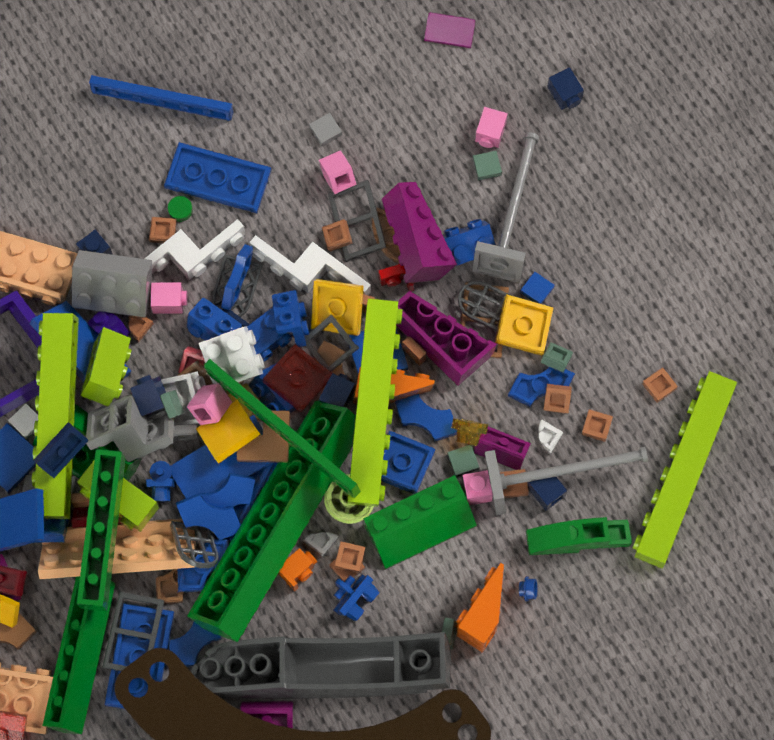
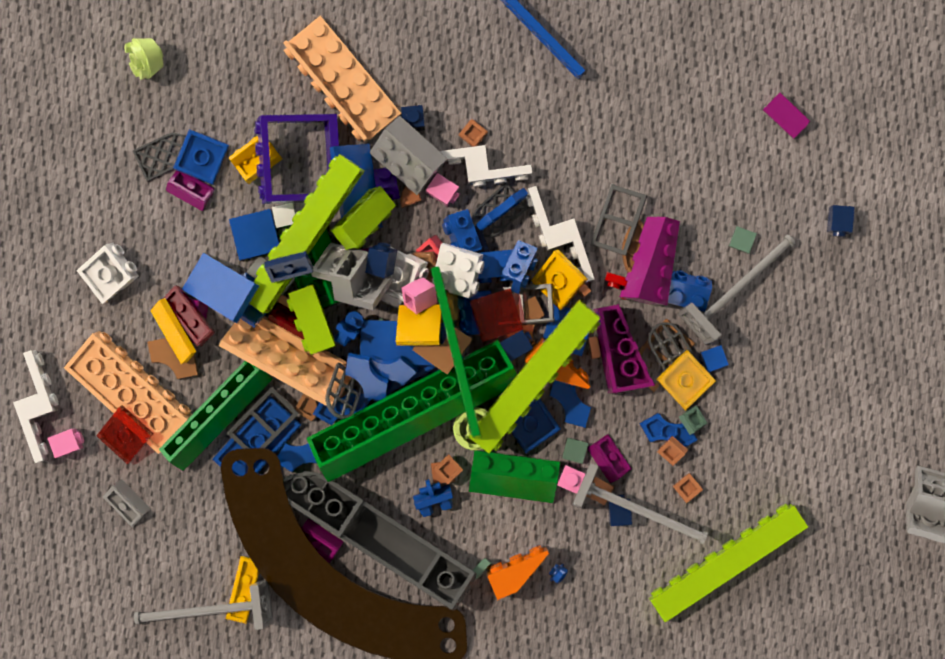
camera: 30 degrees right, 15 degrees up
(101, 530) = (280, 344): green brick -> none
(172, 404) = (392, 278): sand green tile -> none
(180, 208) = (496, 125): green tile -> none
(217, 177) = (539, 118): blue tile -> none
(297, 568) = (407, 452): orange brick -> none
(321, 542) = (435, 442): light grey tile -> none
(325, 129) = (642, 133): light grey tile -> none
(337, 172) = (628, 174): bright pink brick -> none
(337, 235) = (596, 222): nougat tile -> none
(469, 431) = (594, 432): clear yellow tile -> none
(491, 128) = (764, 214): bright pink brick -> none
(548, 436) = (647, 472): white tile -> none
(578, 535) = (618, 561): green slope -> none
(660, 385) = (753, 488): nougat tile -> none

